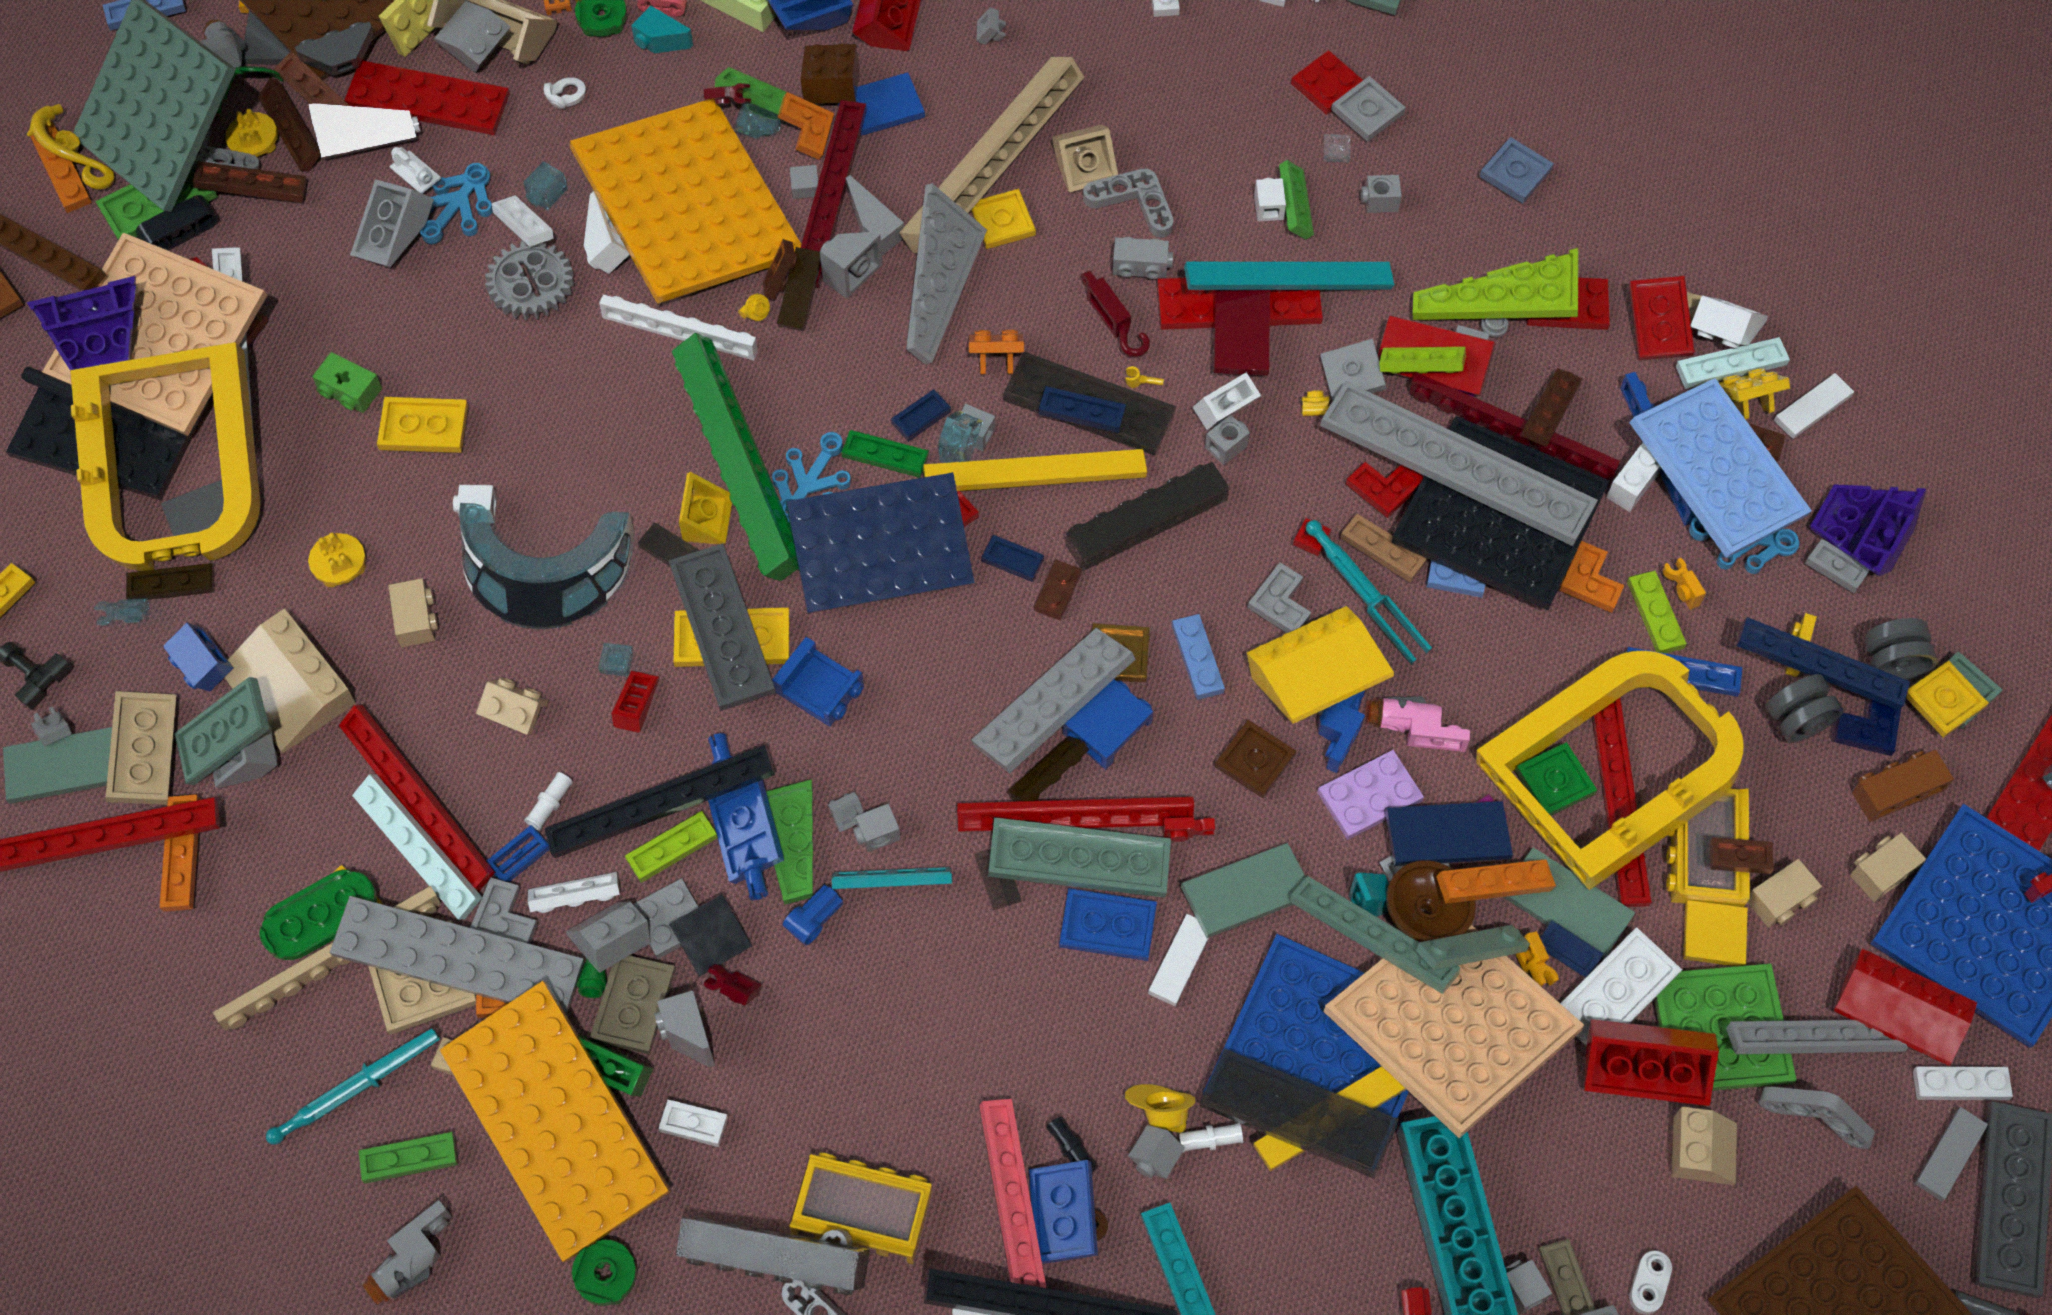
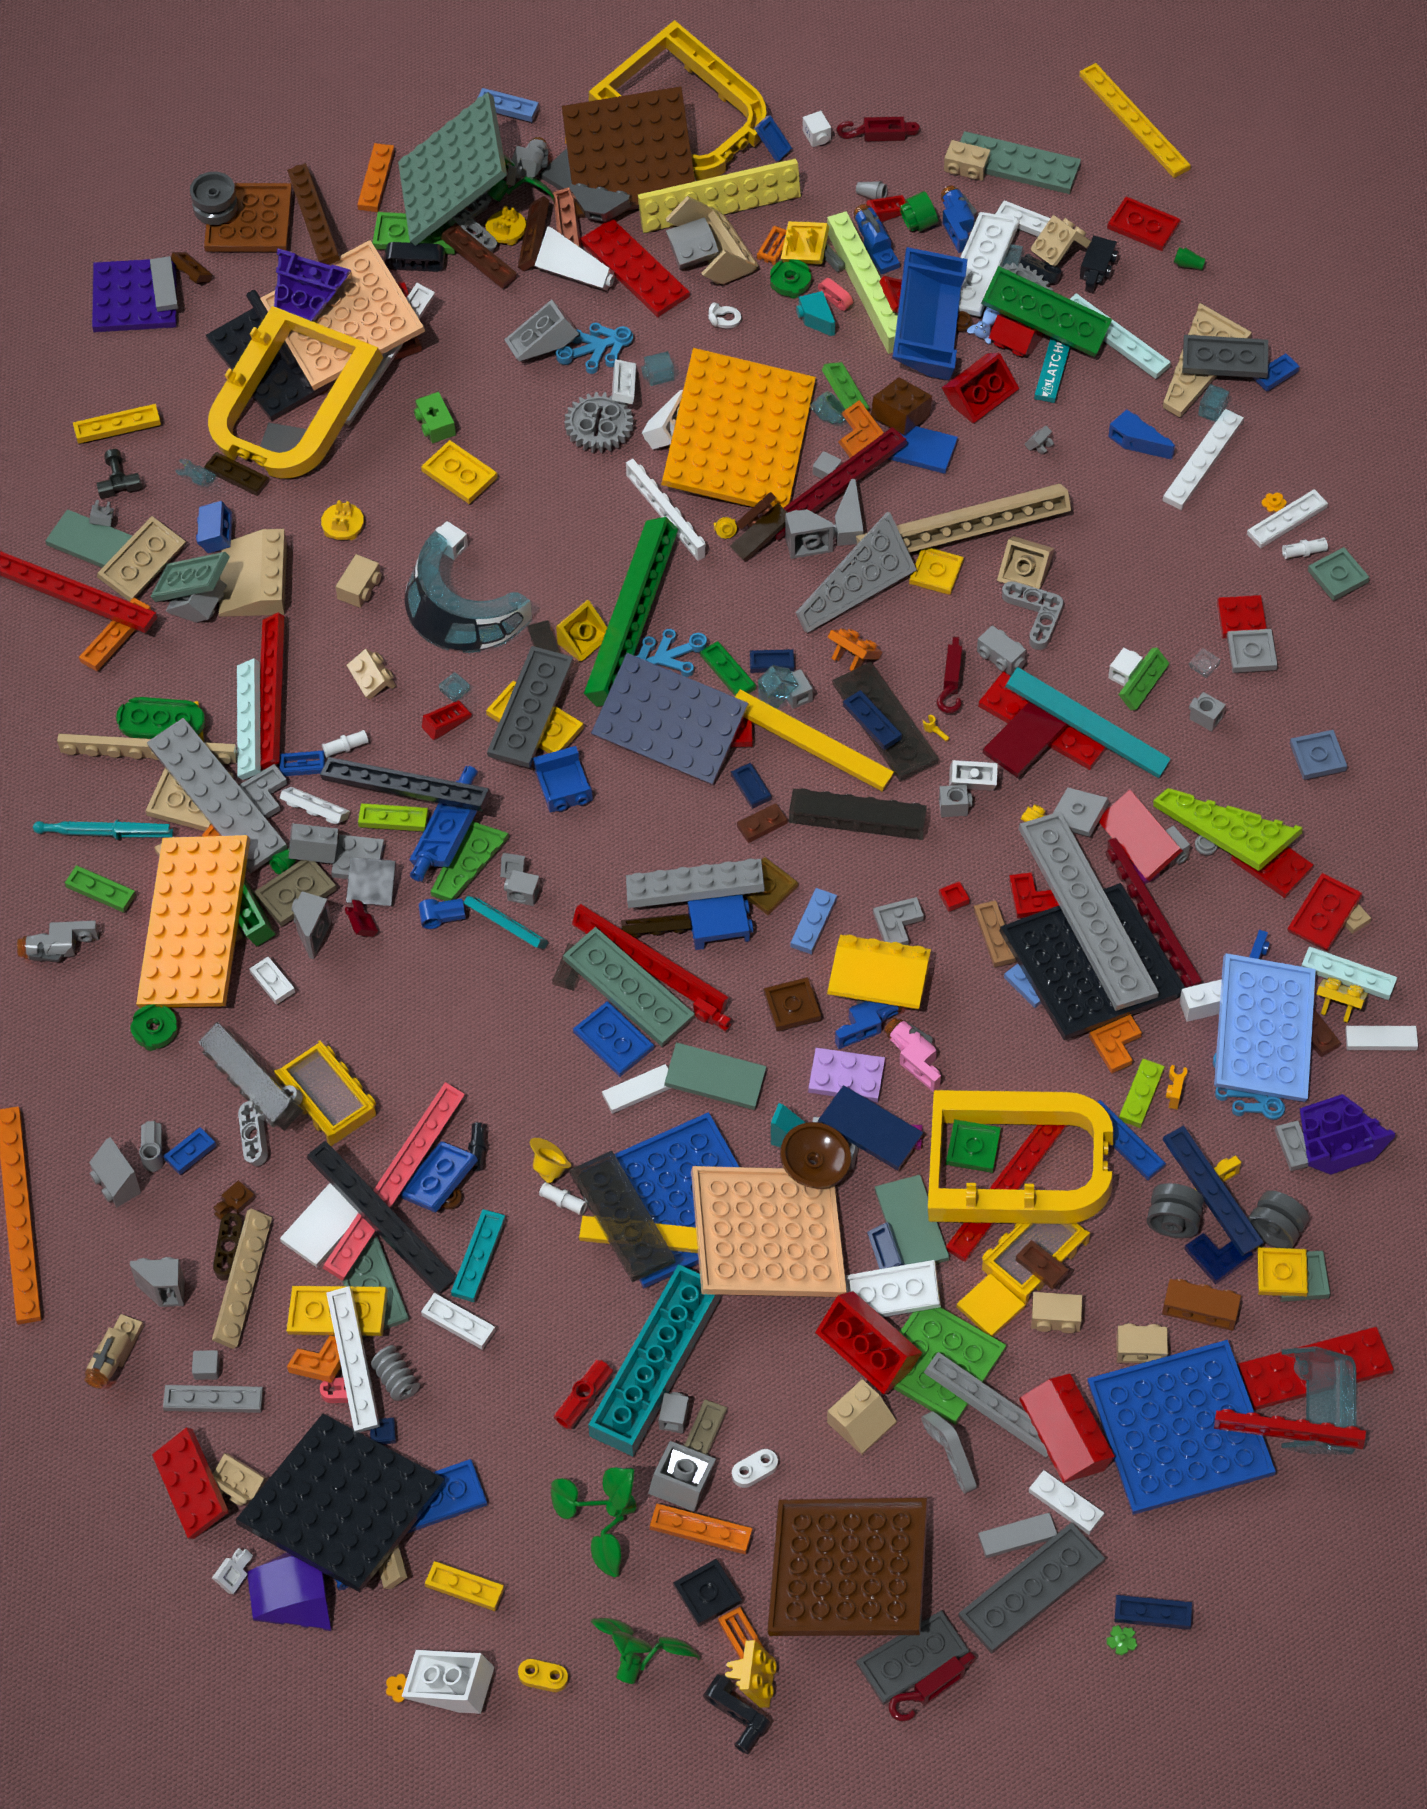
camera: 40 degrees right, 5 degrees down
(69, 148) = (388, 169): yellow plant -> none
(413, 170) = (585, 308): white hinge -> none
(723, 94) = (821, 379): dark red plate -> none
(1156, 1152) = (520, 1182): light grey brick -> none
(1367, 592) = (956, 948): teal piece -> none
(1370, 932) = (763, 1150): sand green plate -> none
(1422, 359) = (1124, 830): lime plate -> none
(1472, 947) = (816, 1197): sand green plate -> none
(1495, 881) = (870, 1172): orange plate -> none
(1535, 959) = (858, 1233): light orange plate -> none
(1551, 407) = (1188, 918): copper plate -> none
(1728, 321) = (1368, 942): white slope -> none

